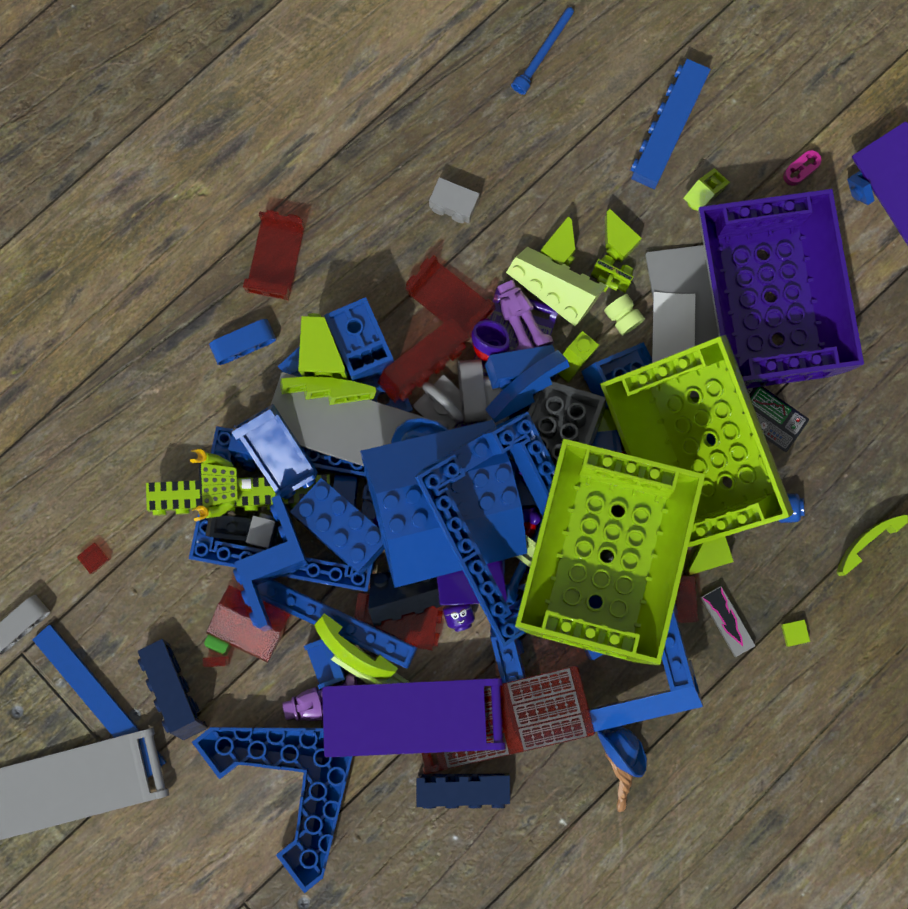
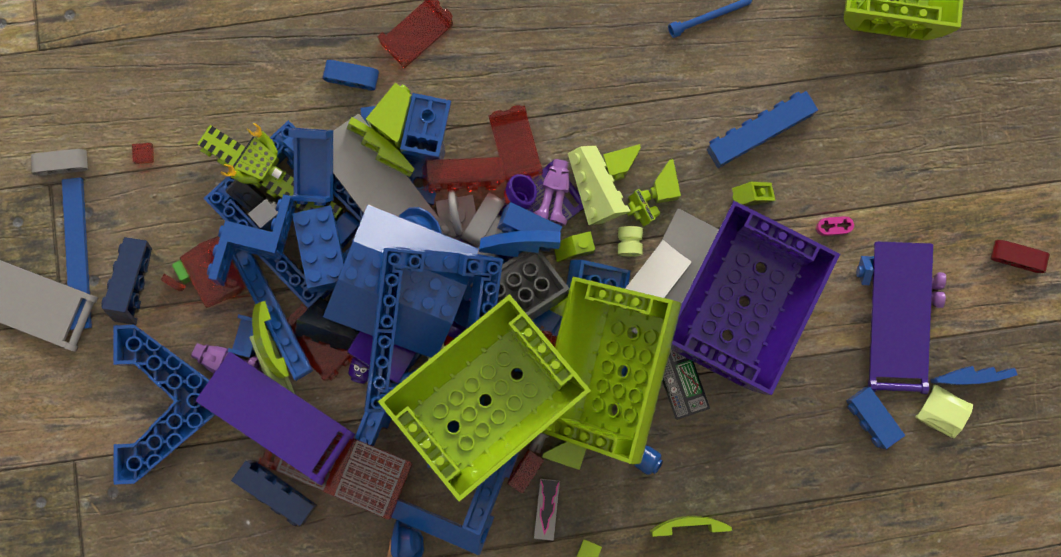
camera: 30 degrees right, 0 degrees up
(453, 201) = (568, 78): light grey brick -> none

